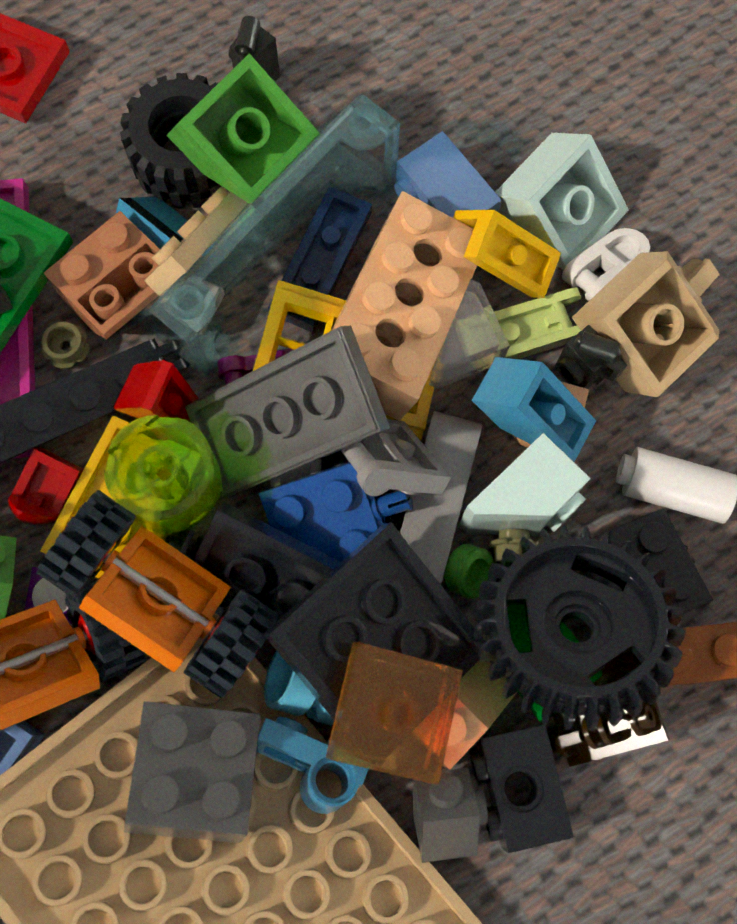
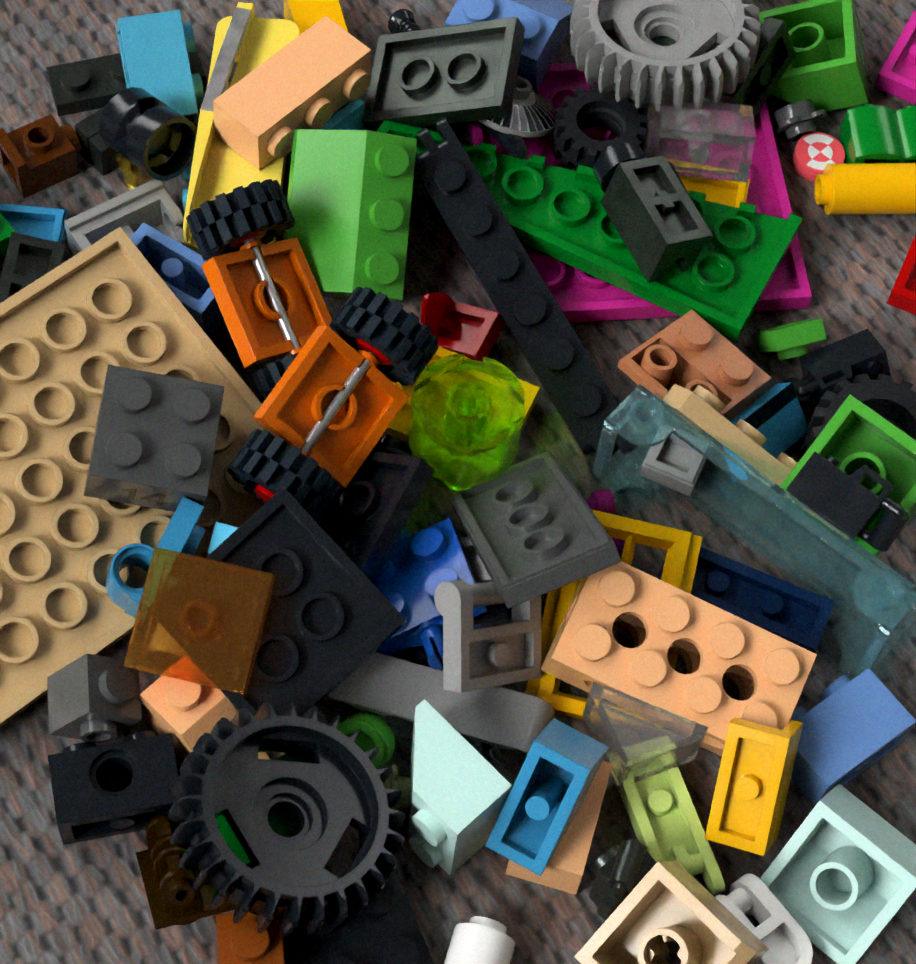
camera: 85 degrees right, 15 degrees down
(62, 333) = (617, 334): olive plate -> none
(64, 198) = (791, 338): none -> bright green plate
(100, 162) = (840, 361): none -> black piece
(155, 390) = (553, 423): red slope -> none
(281, 139) = (847, 503): none -> black piece

